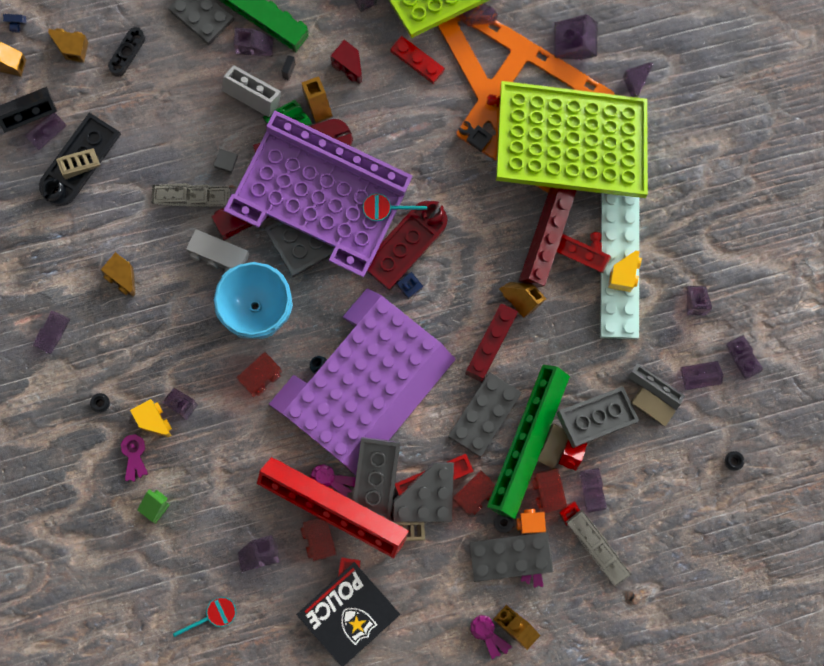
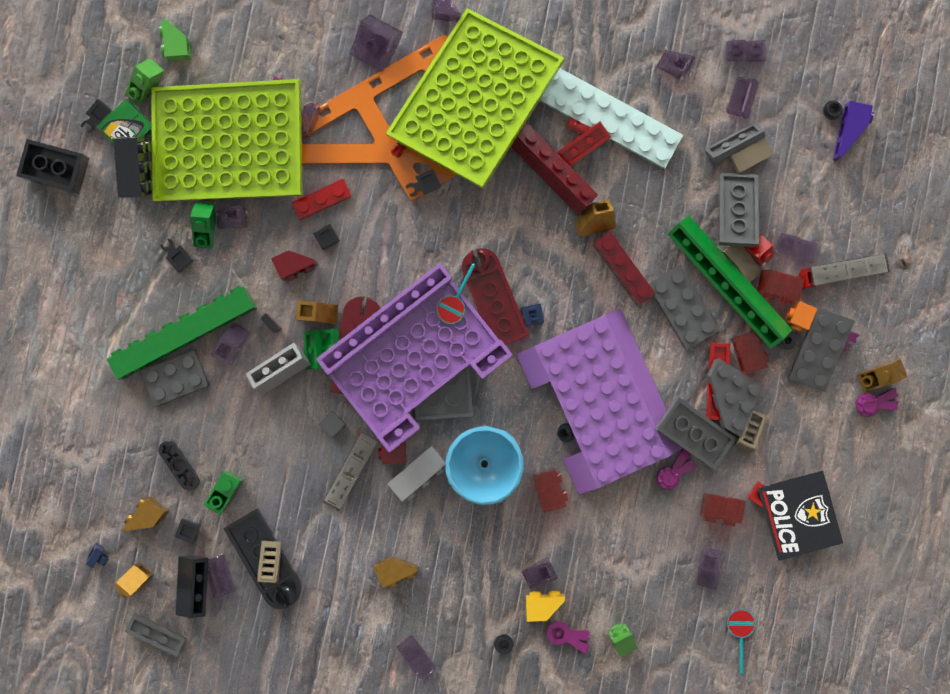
camera: 55 degrees left, 10 degrees up
(72, 85) = (187, 530): none -> black plate
(121, 97) = (223, 492): none -> green slope
(332, 507) = (704, 484): brick -> none
(387, 79) = (326, 237): none -> black tile
(623, 273) = (621, 116): yellow slope -> none
(732, 485) = (854, 121): none -> dark purple slope

